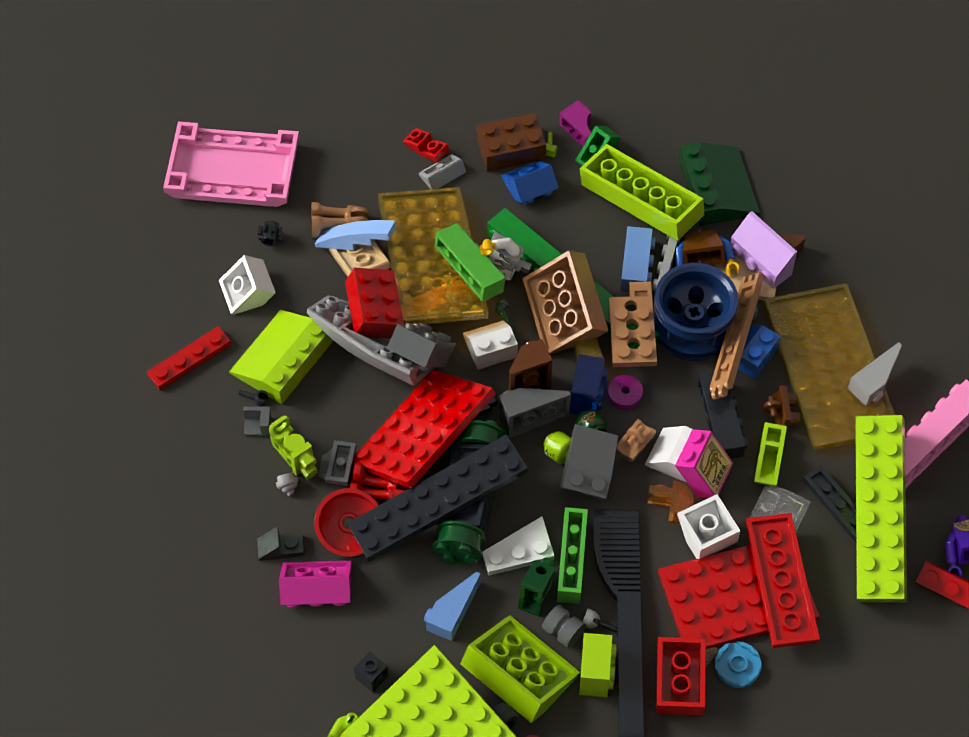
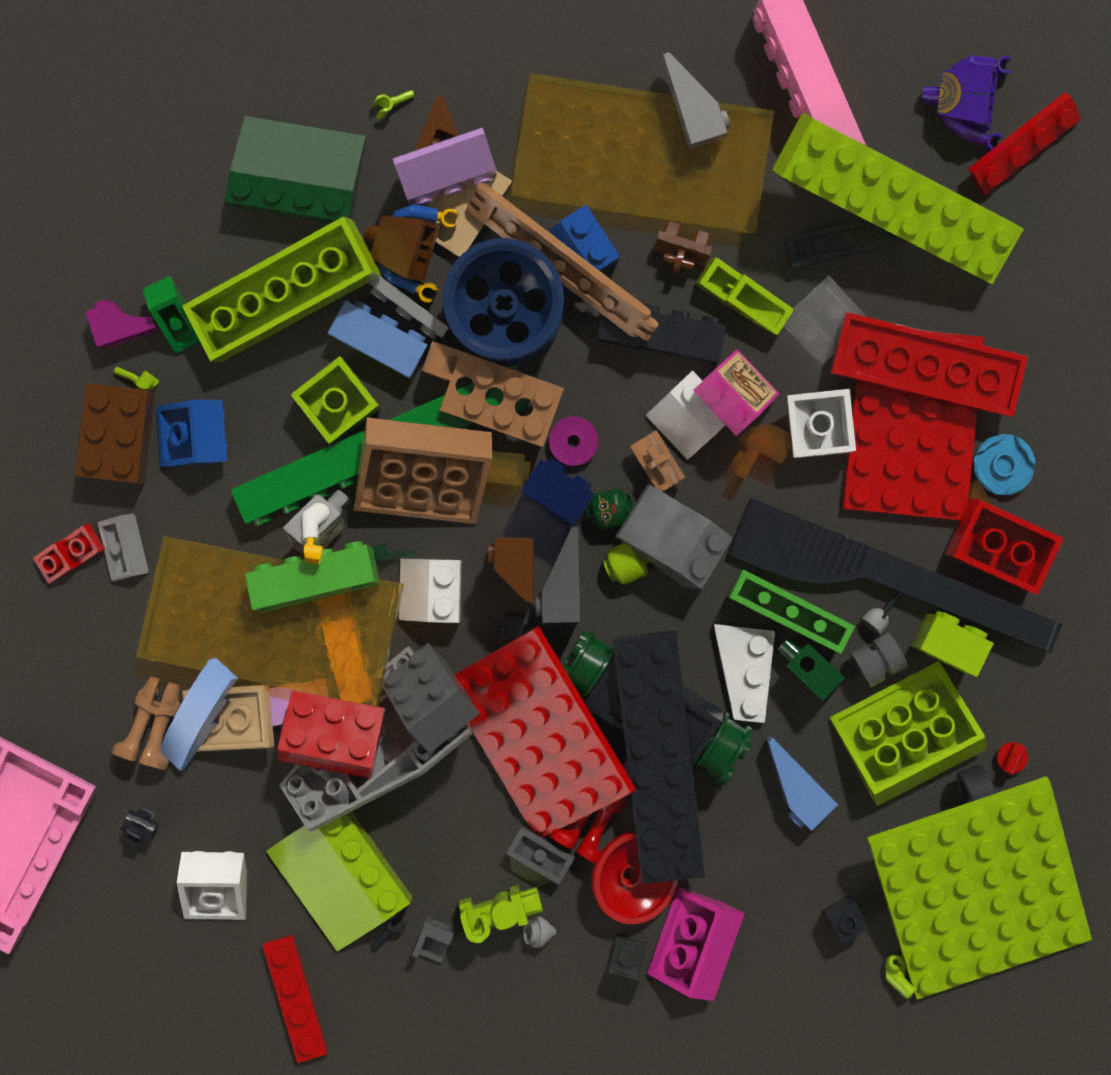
camera: 70 degrees left, 30 degrees up
(589, 239) = (336, 401): none -> lime brick
(784, 213) = (387, 102): none -> lime hand

